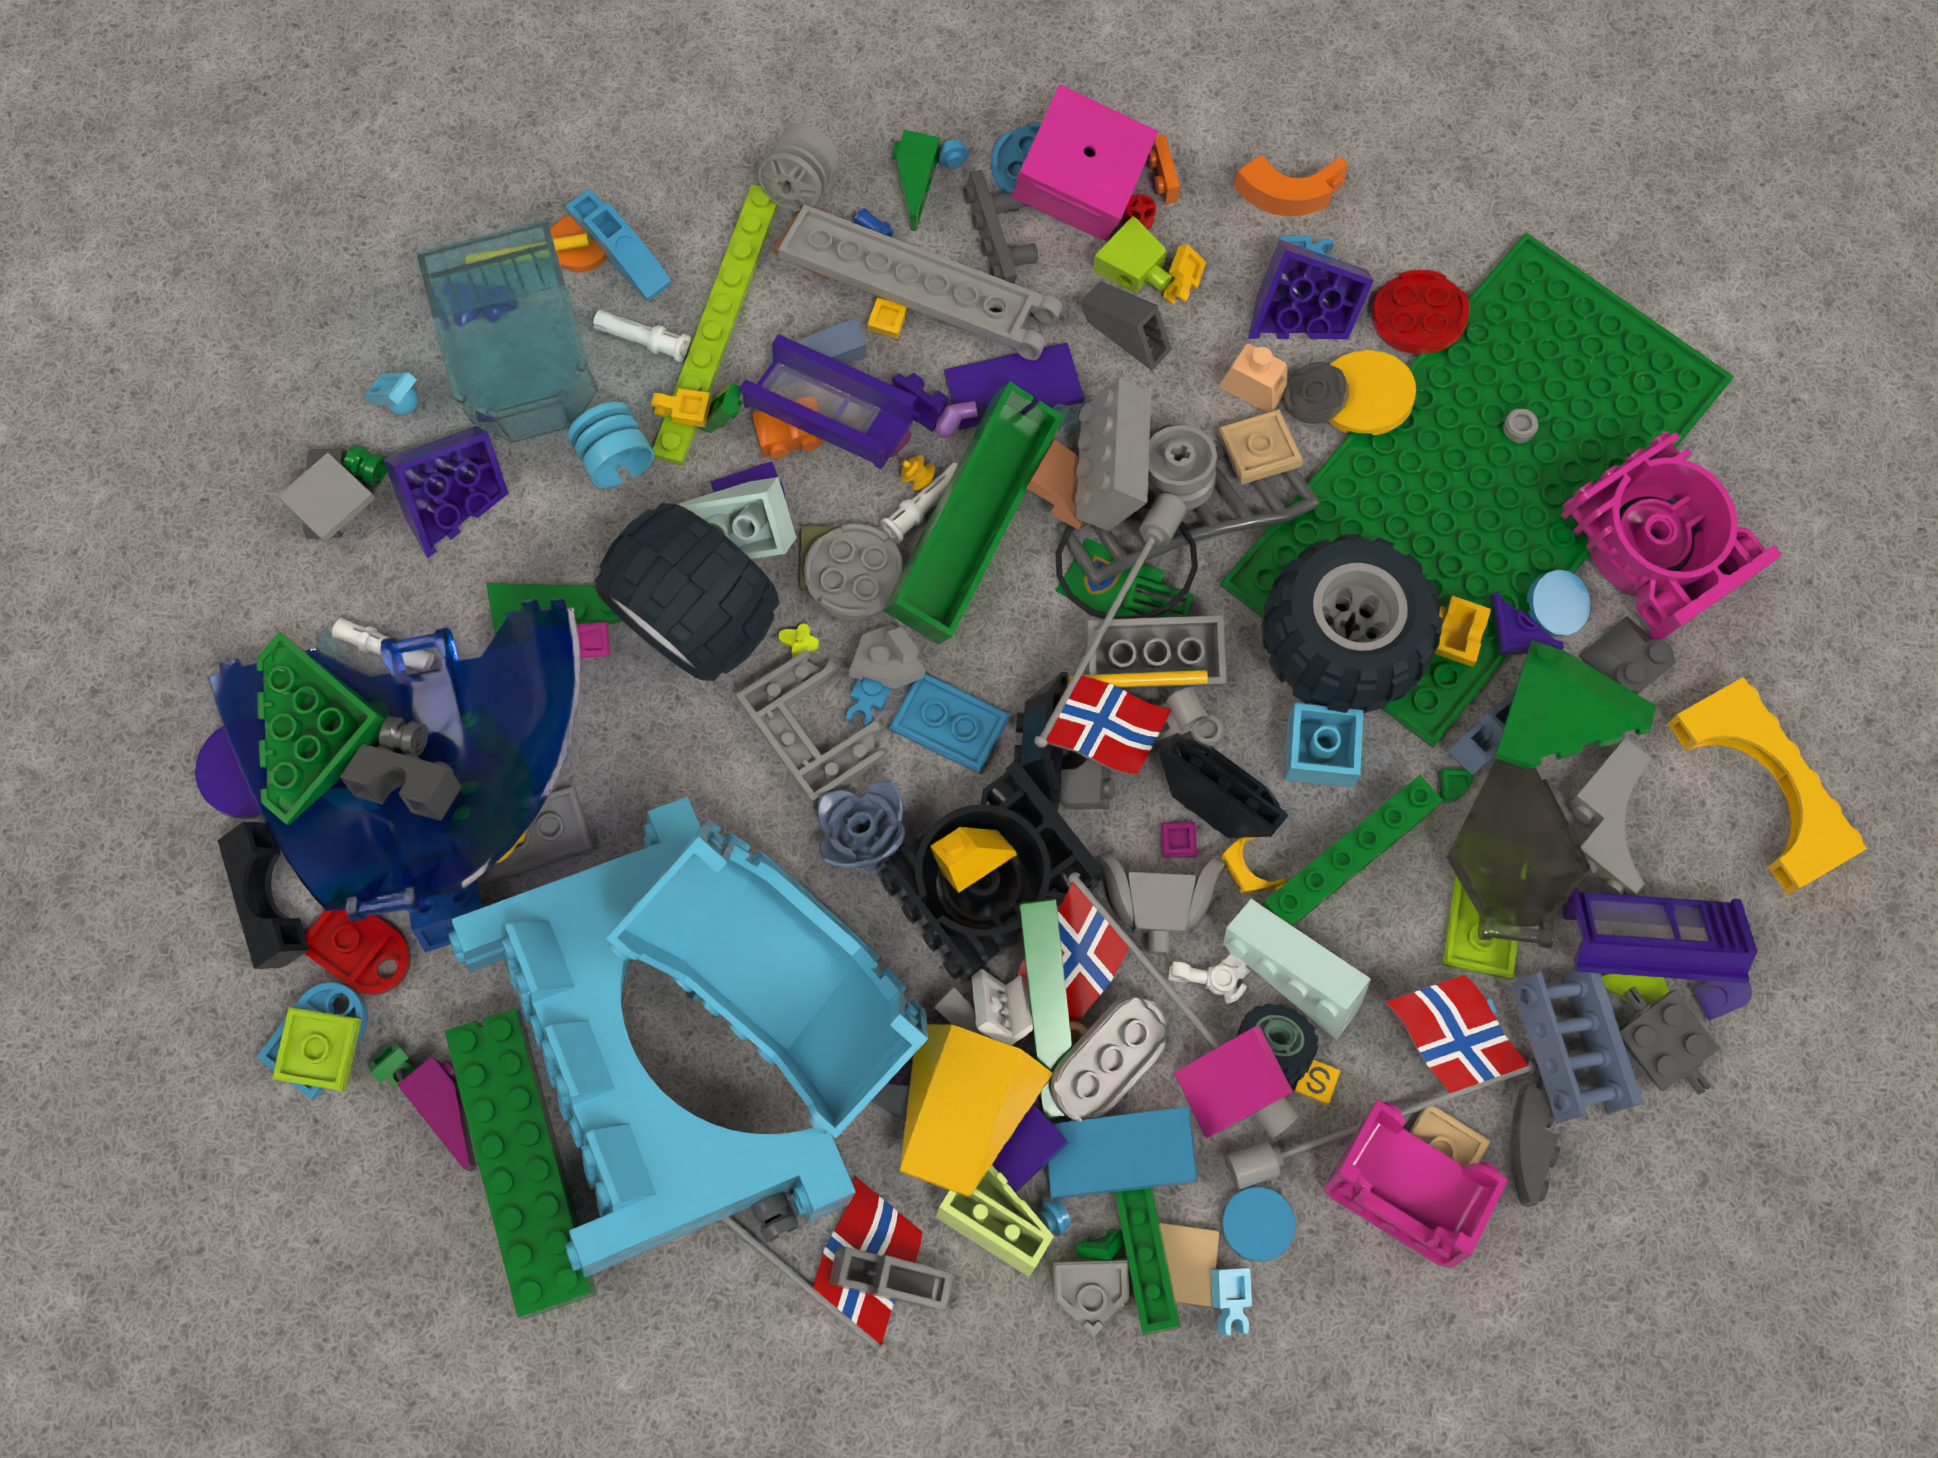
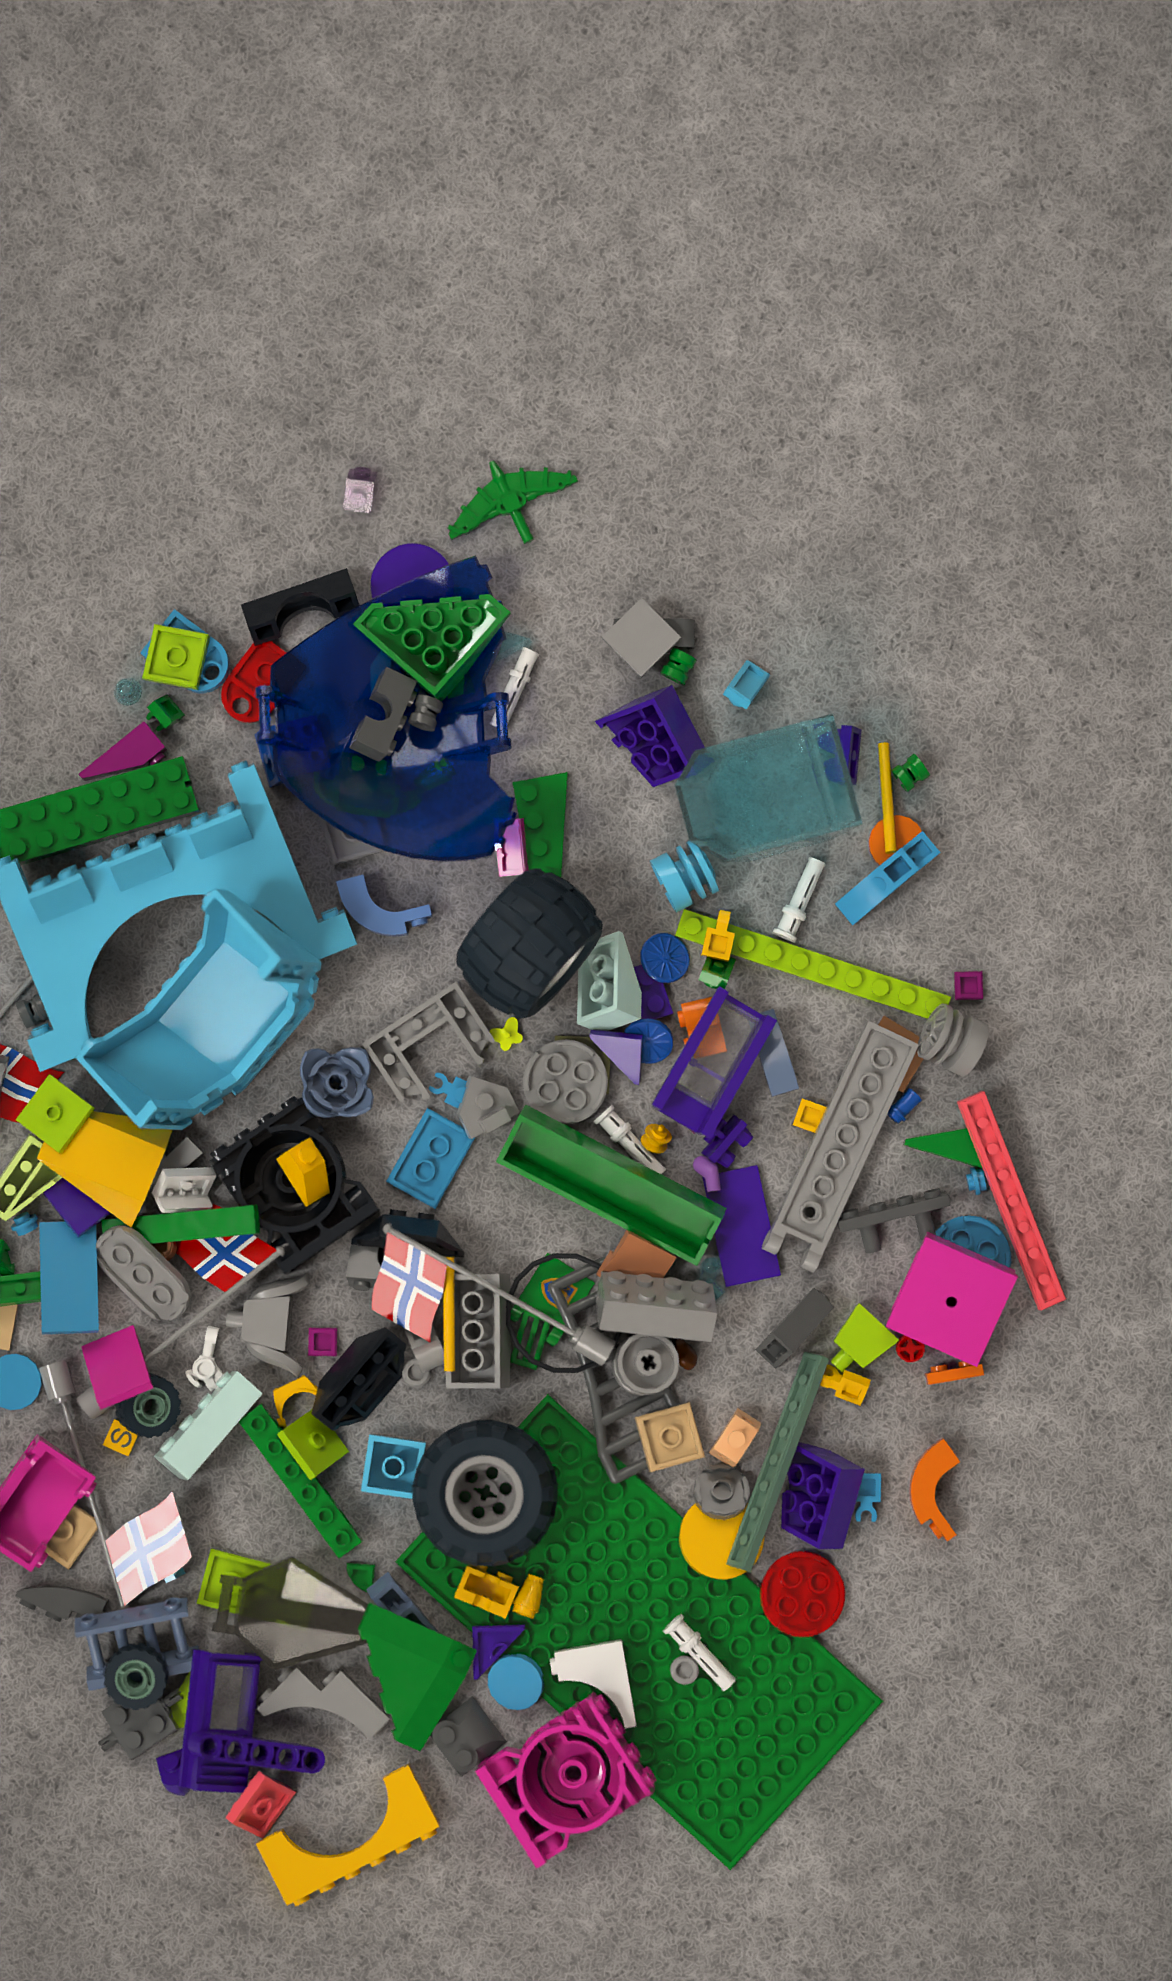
camera: 95 degrees right, 15 degrees up
(123, 832) = (360, 490): none -> bracket
(148, 662) = (508, 496): none -> green bar
(365, 1116) = (132, 696): none -> clear light blue cone
(496, 219) = (916, 770): none -> green wheel
(662, 786) = (364, 911): none -> medium blue arch
(707, 471) = (664, 958): none -> blue wheel
(739, 170) = (968, 985): none -> magenta tile
(805, 483) = (656, 1041): none -> blue wheel
(815, 507) = (623, 1050): none -> tile
(910, 1172) = (55, 1114): none -> lime plate
(964, 116) = (1011, 1200): none -> coral tile
(1281, 333) = (777, 1461): none -> sand green tile
(1305, 840) = (312, 1444): none -> lime plate
(1460, 586) = (529, 1597): none -> yellow cone
(1491, 416) = (690, 1642): none -> white pin
(1530, 509) = (601, 1667): none -> white arch
(1642, 1036) = (131, 1693): none -> black wheel
(1694, 887) = (244, 1751): none -> dark purple beam
(1740, 879) = (260, 1804): none -> coral plate

